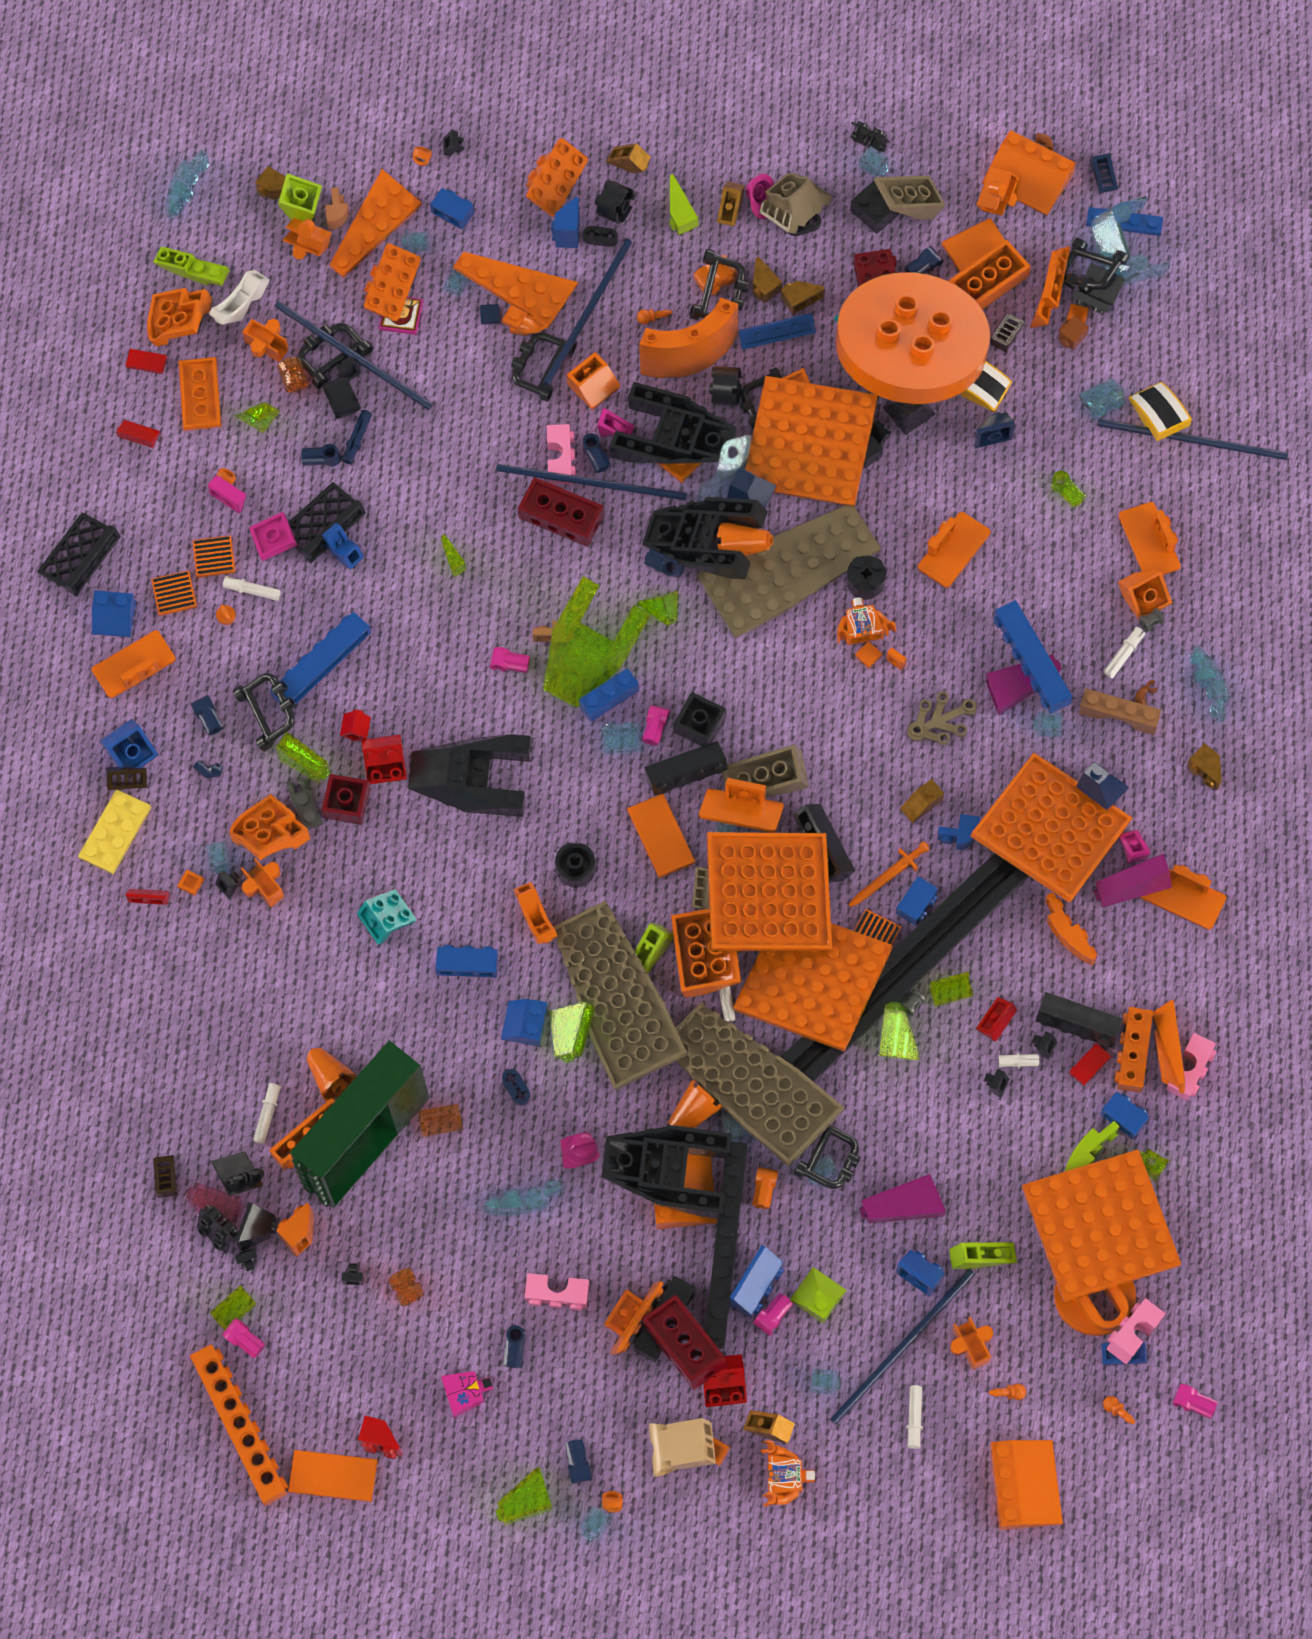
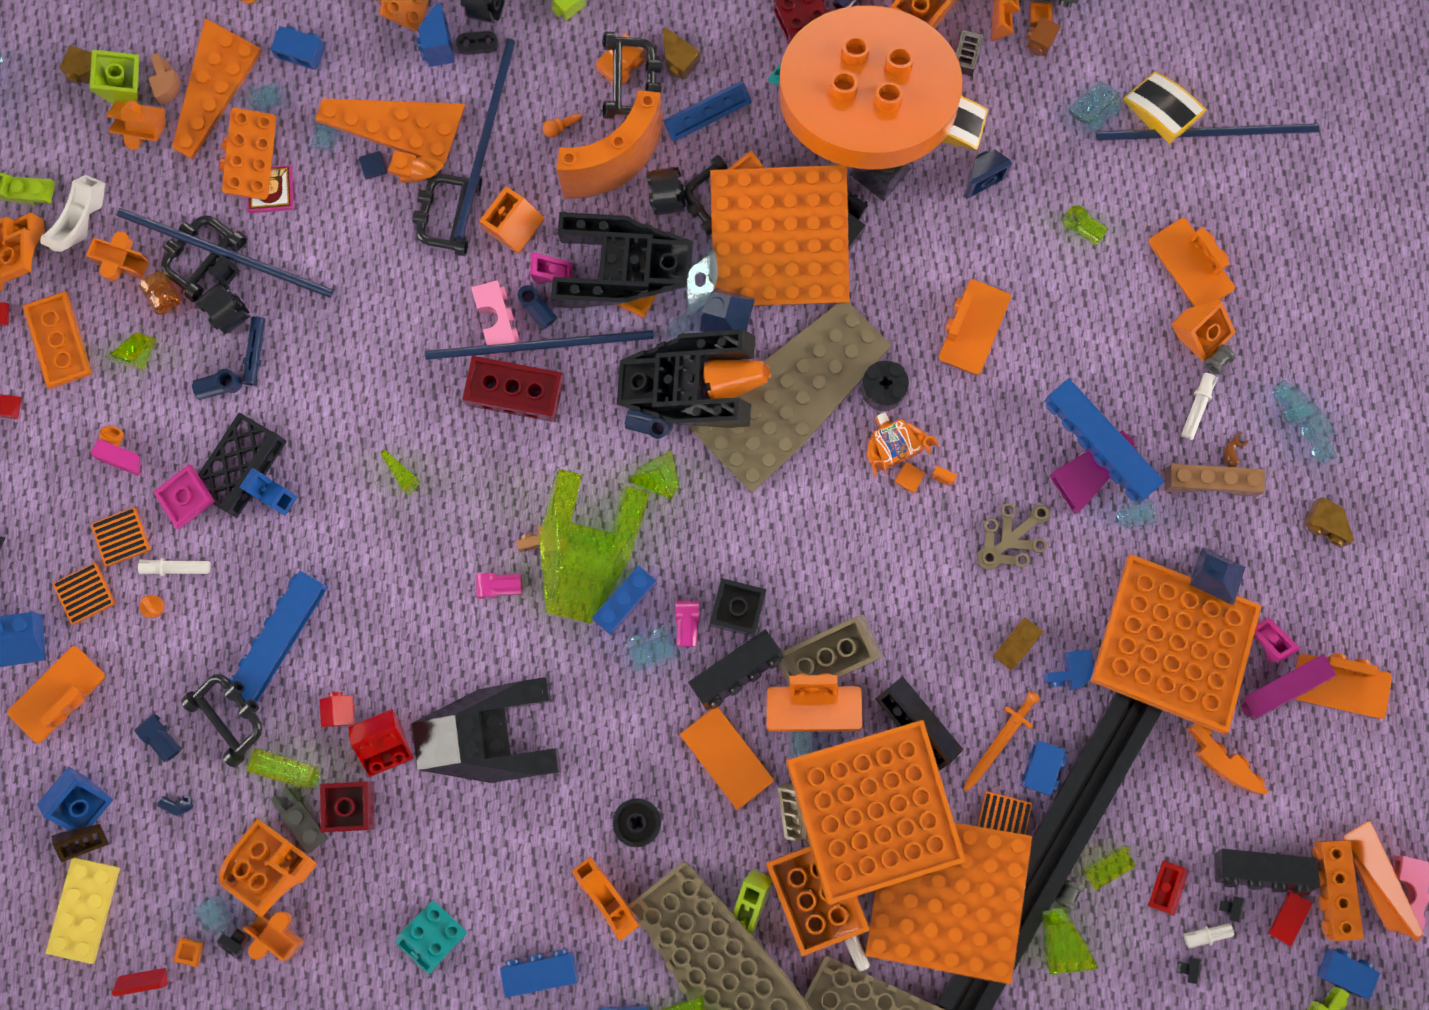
camera: 15 degrees left, 10 degrees up
(800, 295) = (724, 61): pearl gold slope -> none

